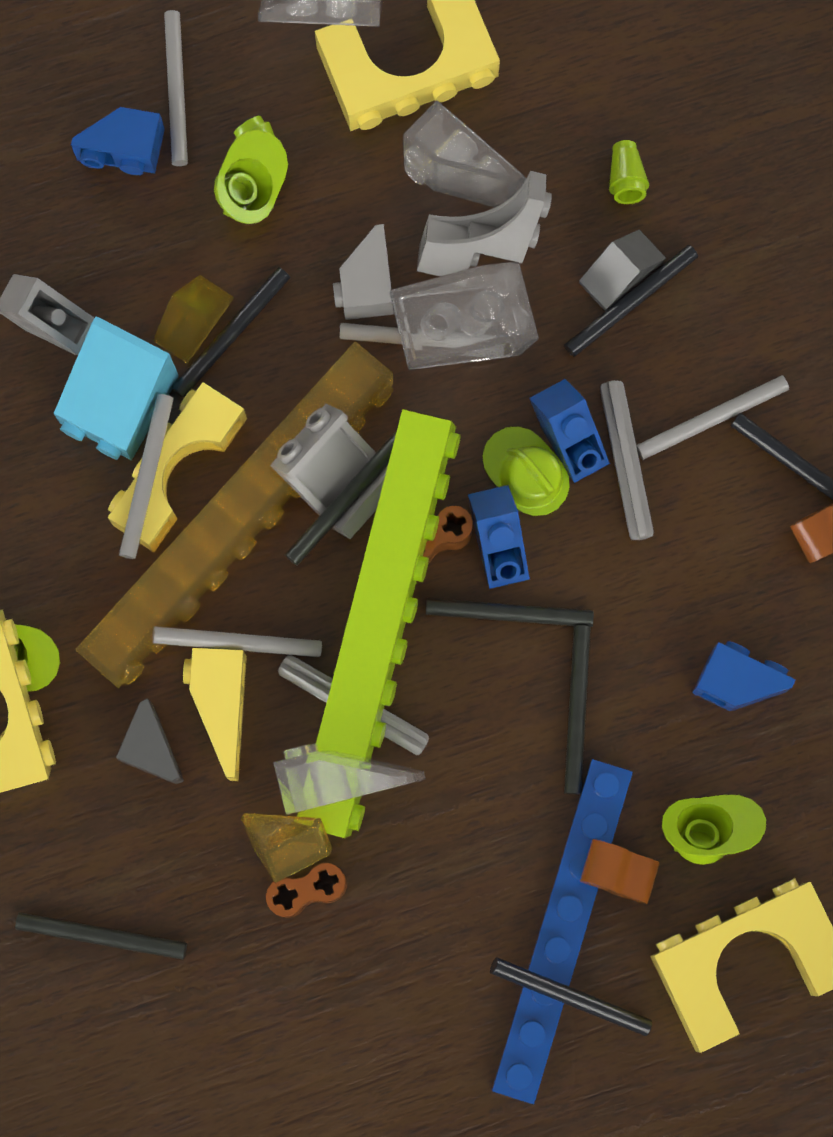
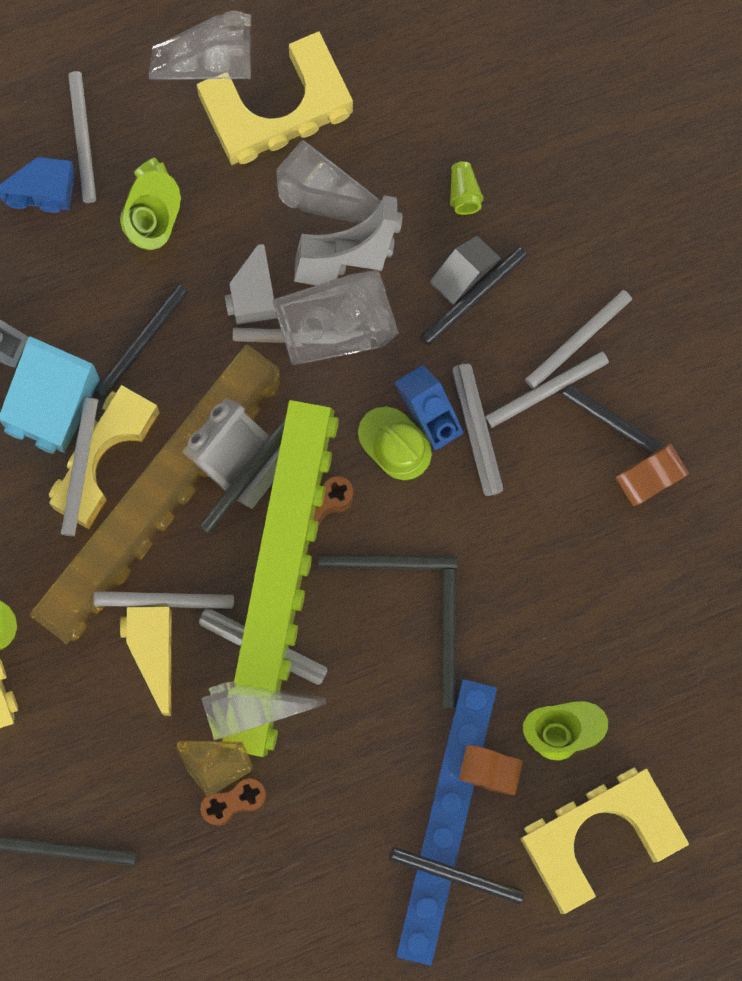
camera: 10 degrees left, 0 degrees up
(148, 746) = (94, 692): dark grey slope -> none
(191, 317) = (107, 330): clear yellow slope -> none
(499, 536) = (375, 499): blue slope -> none
(737, 680) = (579, 607): blue slope -> none
(753, 359) = (578, 339): none -> light grey bar

